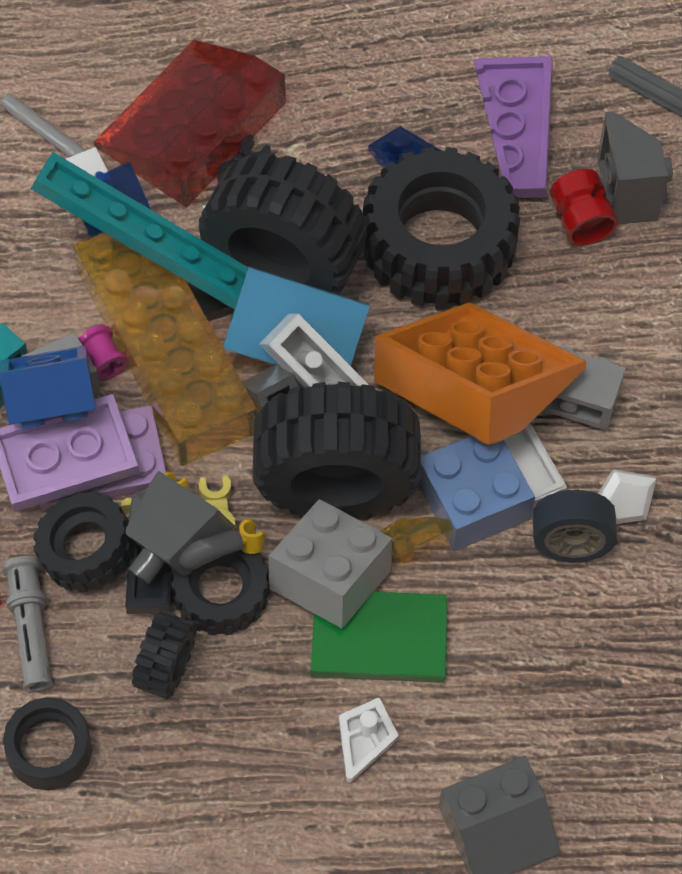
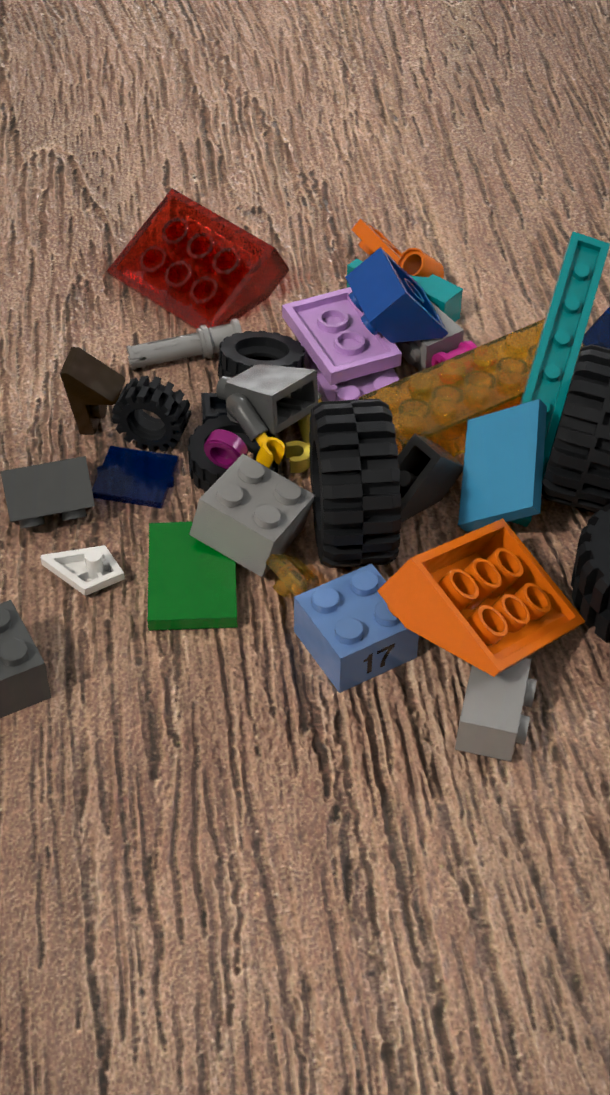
camera: 85 degrees right, 15 degrees down
(41, 711) = (56, 350): black tyre -> none
(125, 710) = (89, 388): none -> dark brown slope
(226, 688) = (135, 477): none -> clear blue piece
(247, 576) = (224, 448): none -> magenta tile
(250, 771) = (48, 490): none -> dark grey slope
(307, 354) = (450, 481): white brick -> none
(535, 463) = (400, 682): white tile -> none
(574, 526) = (316, 703): black wheel -> none
(629, 494) = (365, 759): white piece -> none

